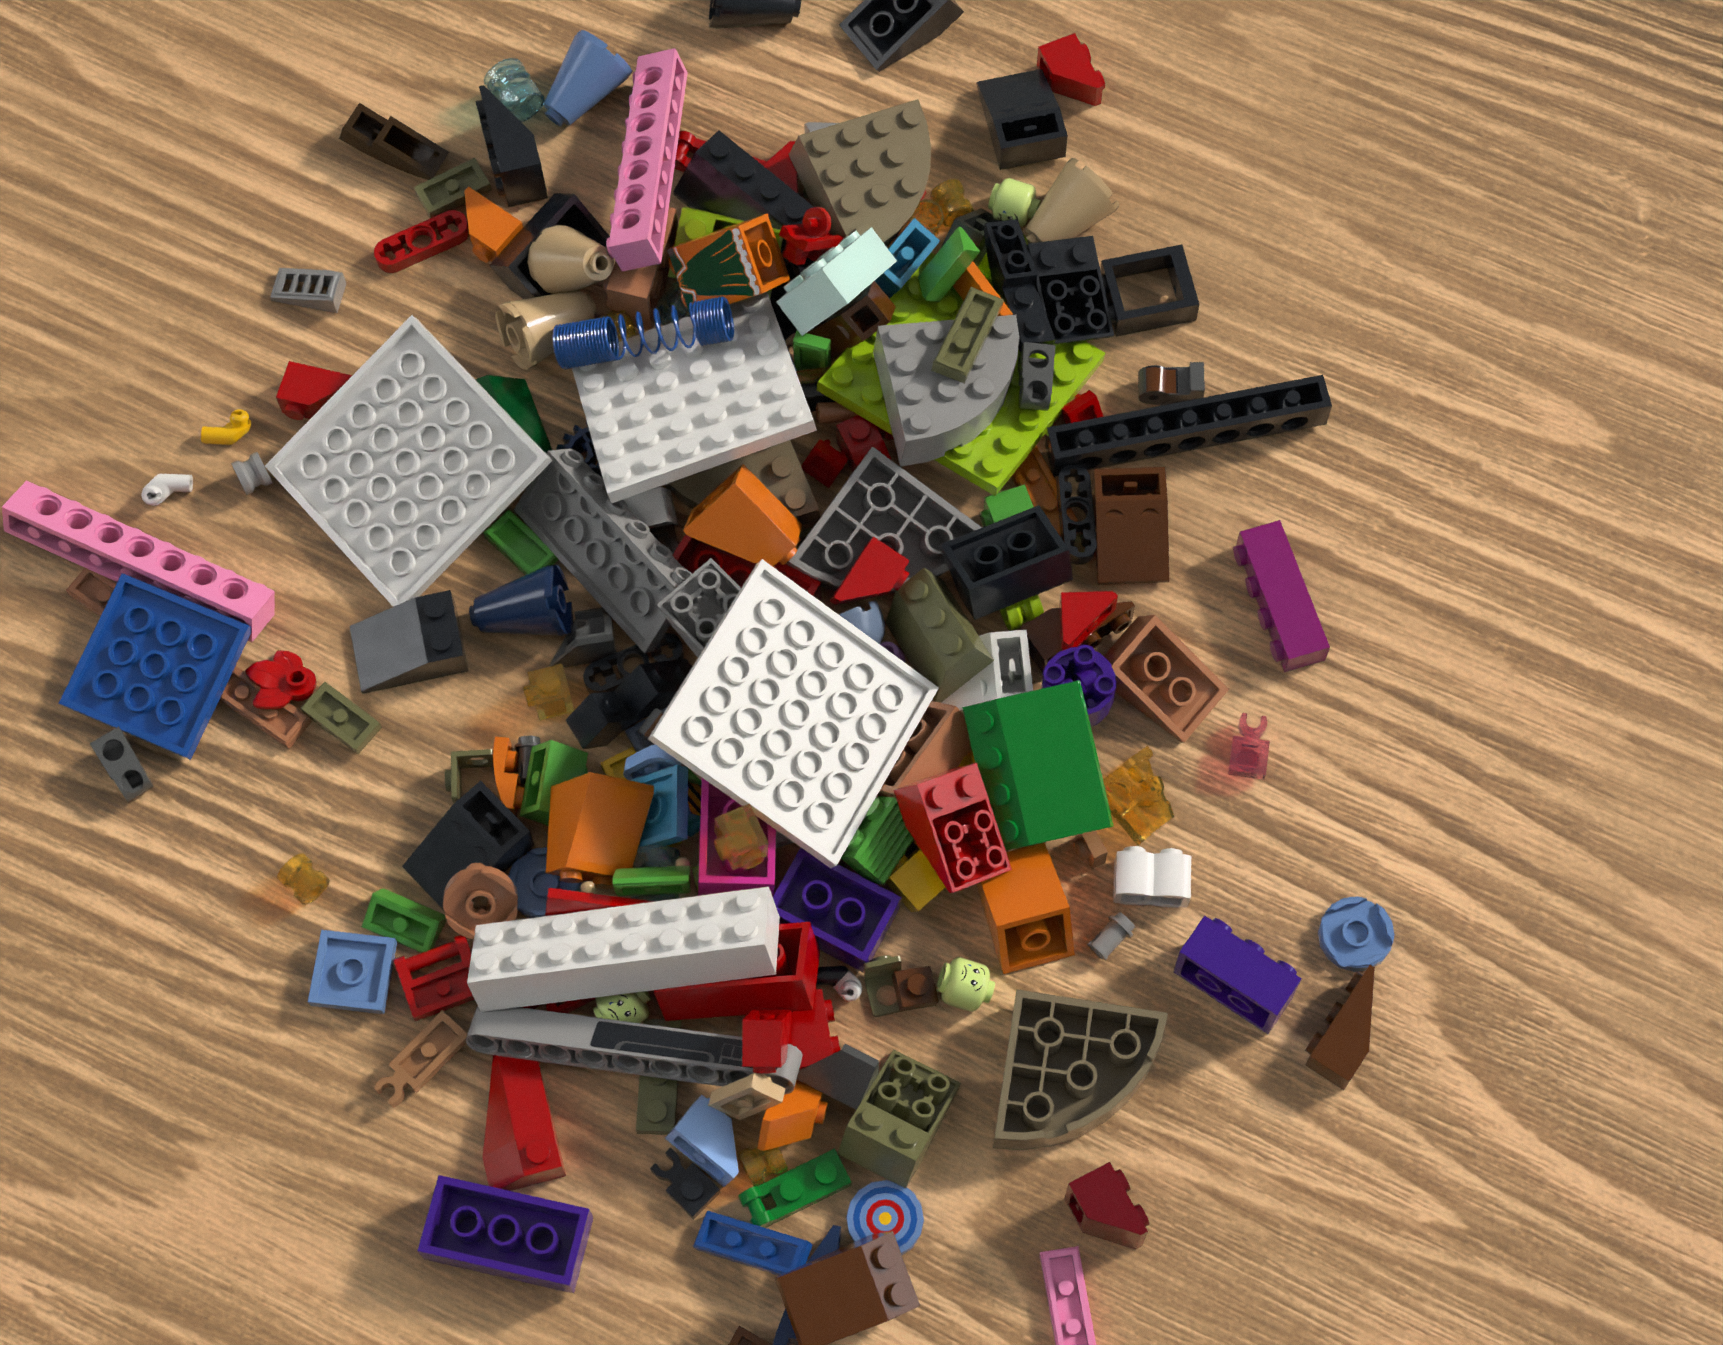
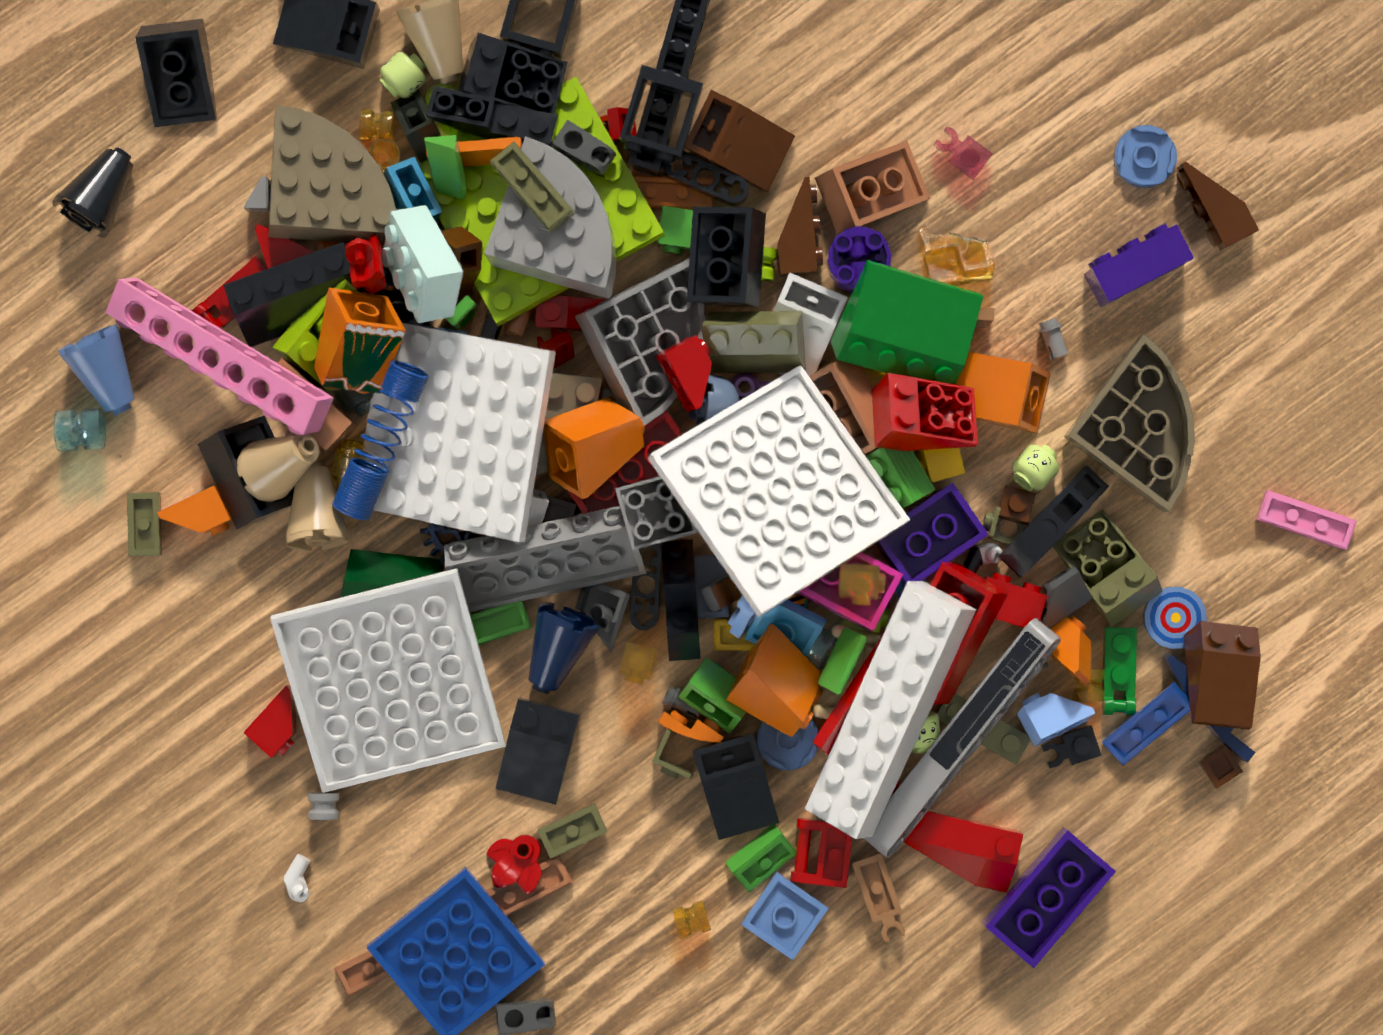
camera: 65 degrees left, 20 degrees up
(115, 548) = (348, 947): bright pink brick -> none
(230, 433) = (274, 805): yellow arm -> none
(326, 302) = (192, 666): light grey slope -> none
(392, 143) = (75, 552): dark brown slope -> none
(416, 255) = (168, 580): red beam -> none
(474, 882) = (772, 794): nougat plate -> none
(510, 152) = (148, 459): black slope -> none
(747, 1096) = (1047, 675): tan plate -> none
(765, 1039) = (1019, 640): red slope -> none
(918, 1029) = (1053, 521): none -> black slope
(1082, 614) = (802, 226): red slope -> none
(1104, 1208) = (1257, 459): dark red slope -> none
(1107, 398) = (666, 82): none -> black window
(1152, 878) = (1026, 284): white brick -> none
(1171, 384) = (633, 39): dark grey leg -> none
(1281, 596) = (856, 57): magenta brick -> none

